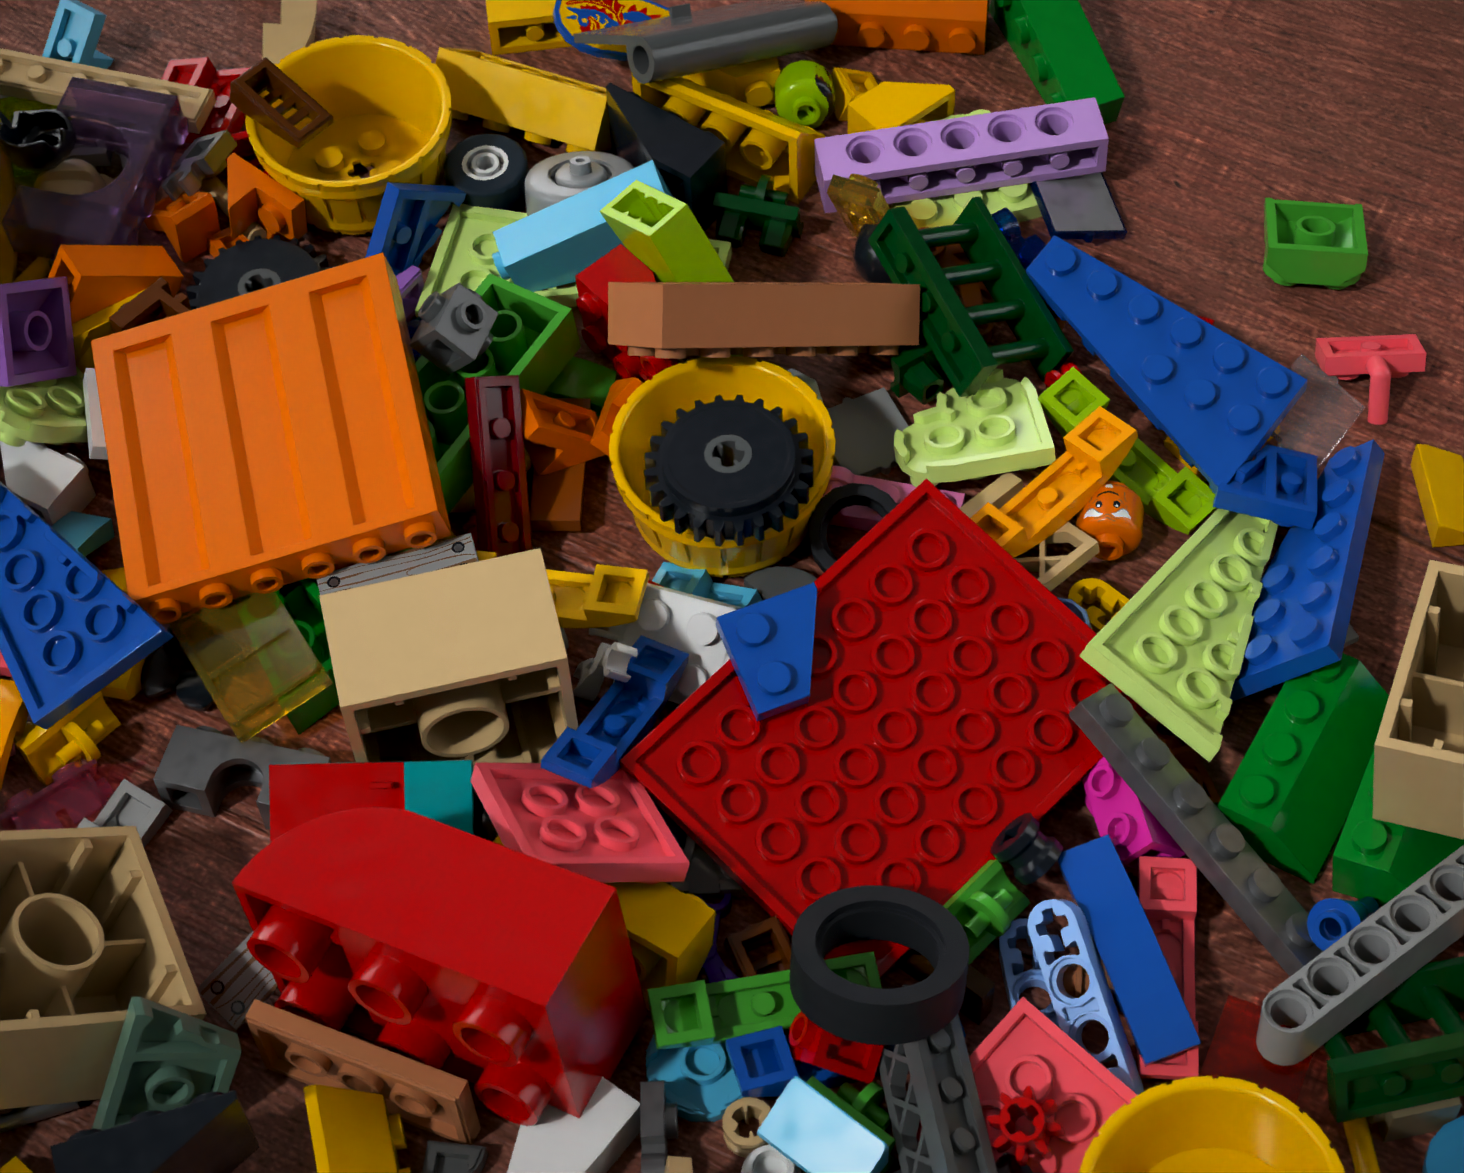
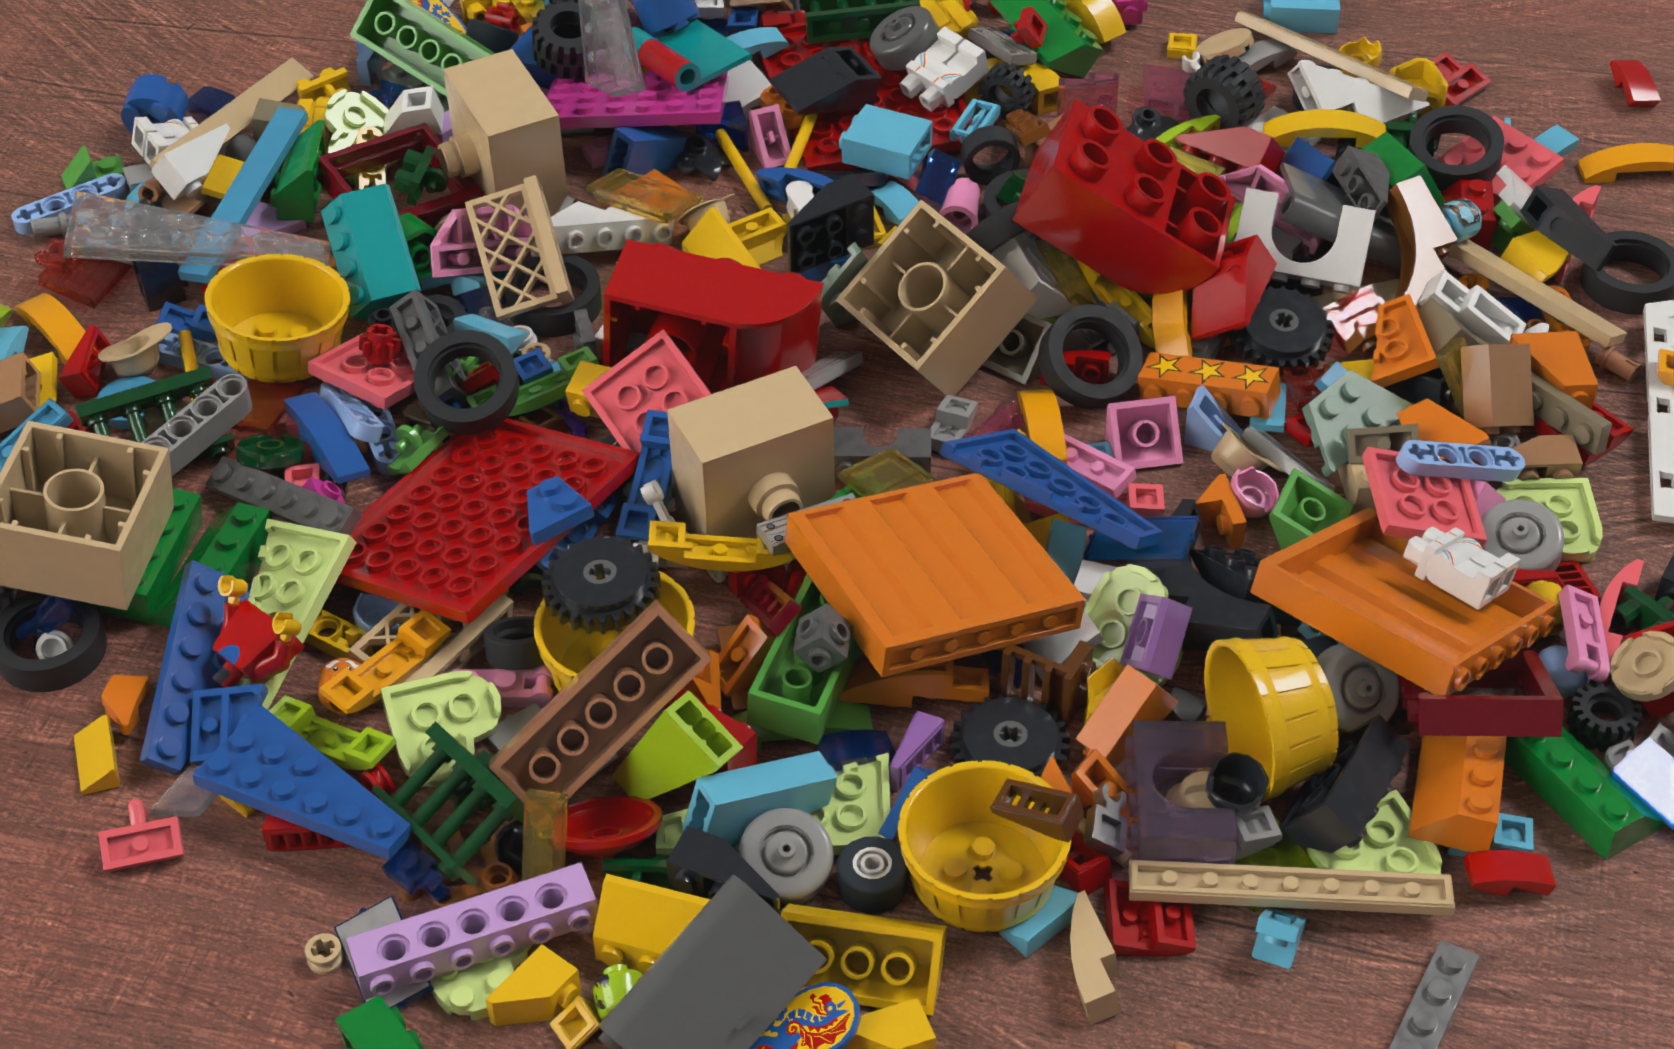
camera: 165 degrees right, 10 degrees down
(785, 229) = (610, 825): none -> red dish
(1026, 849) = (387, 468): black wheel -> none
(1142, 196) = (329, 944): none -> tan bush
(1222, 949) = (269, 453): none -> dark green tile
(1225, 537) = (251, 639): none -> red torso
(1314, 243) = (176, 930): bright green slope -> none
(1335, 917) = (198, 471): blue cone -> none
(1411, 565) = (123, 698): none -> orange slope

